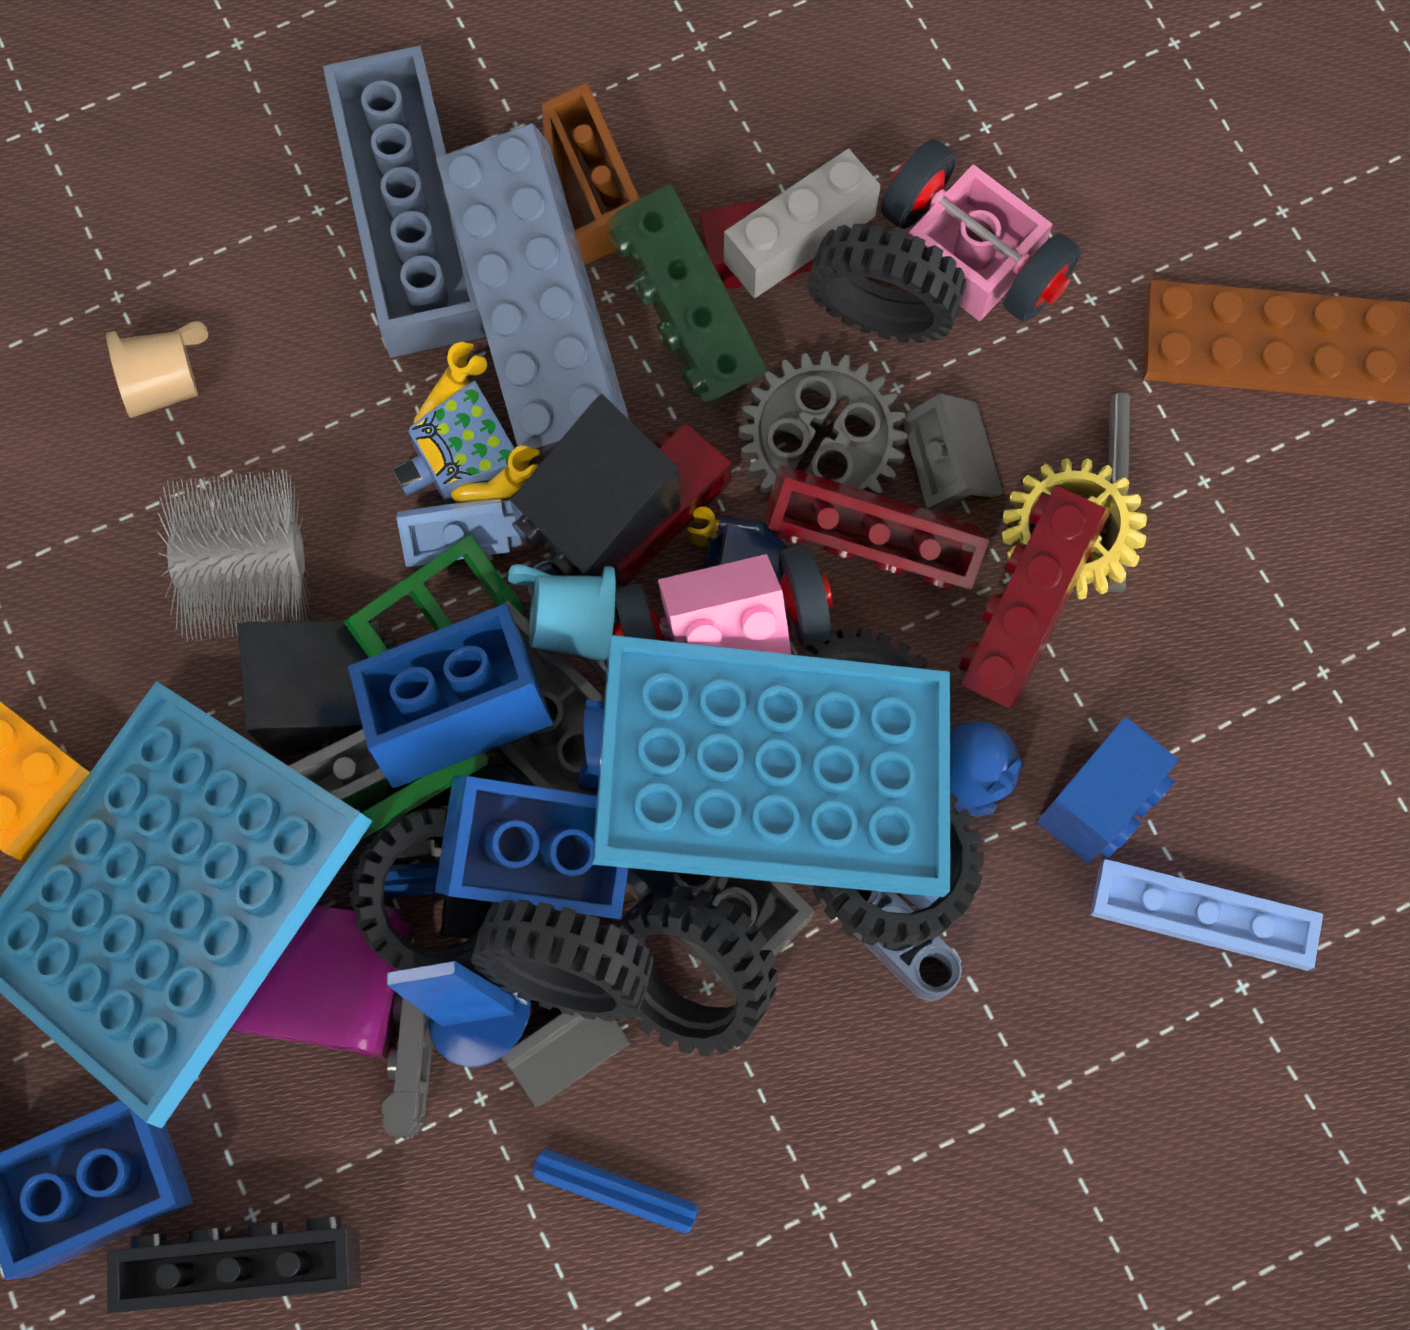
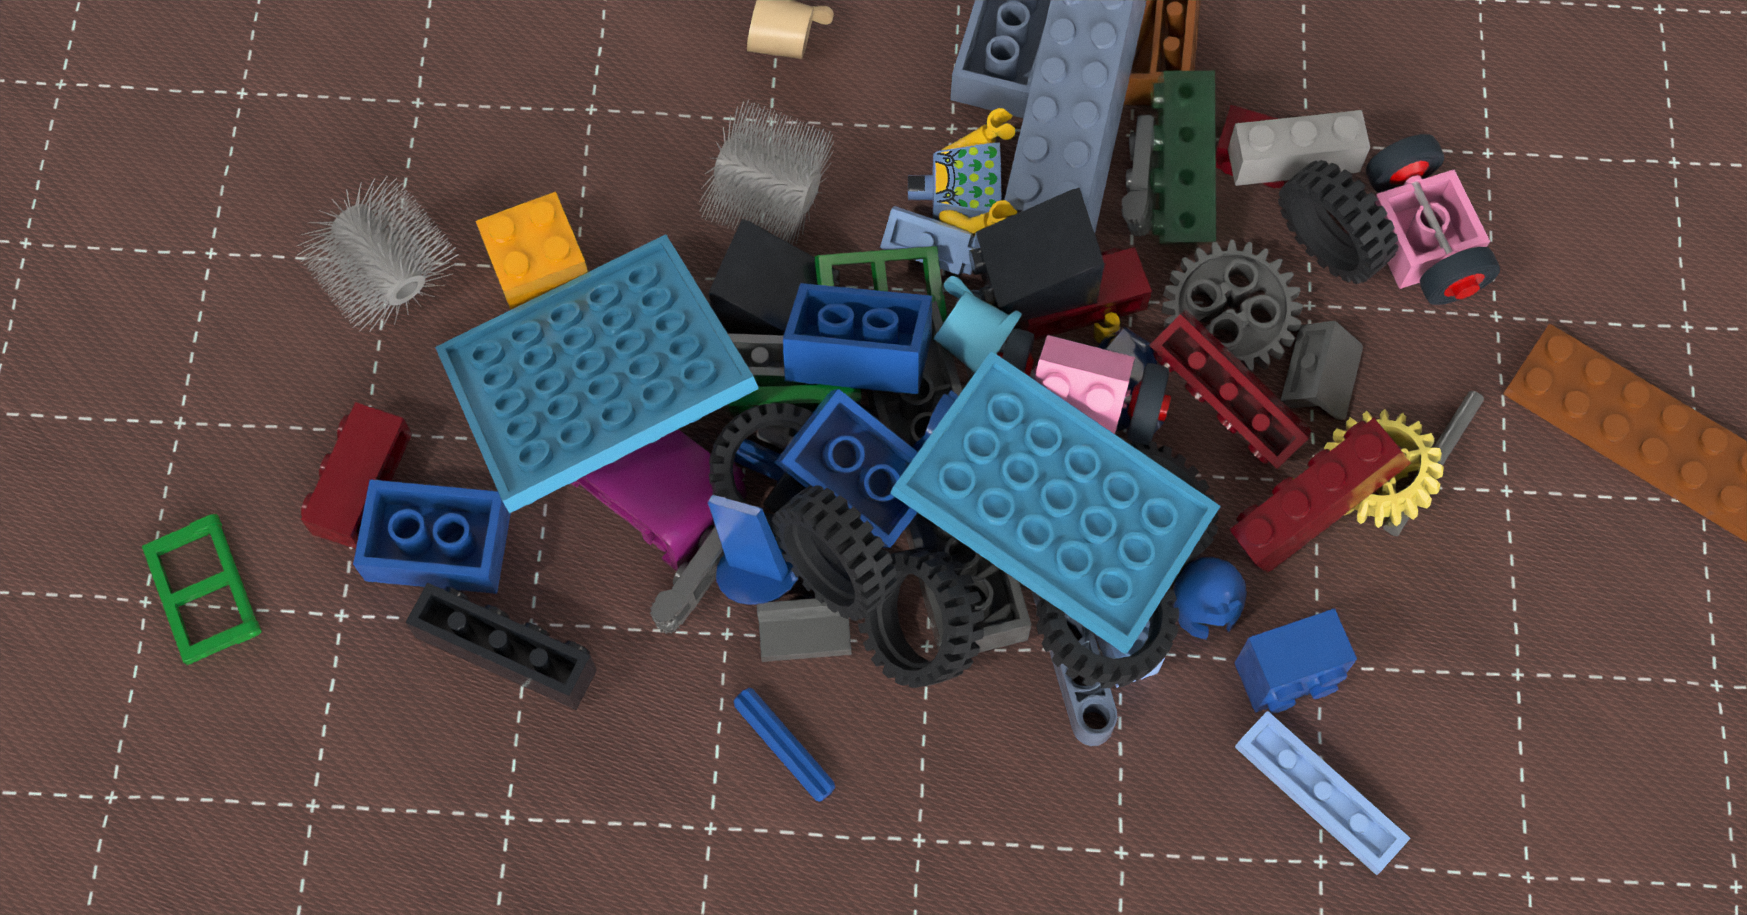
camera: 30 degrees right, 5 degrees down
(661, 368) = (1140, 199): none -> dark grey hinge

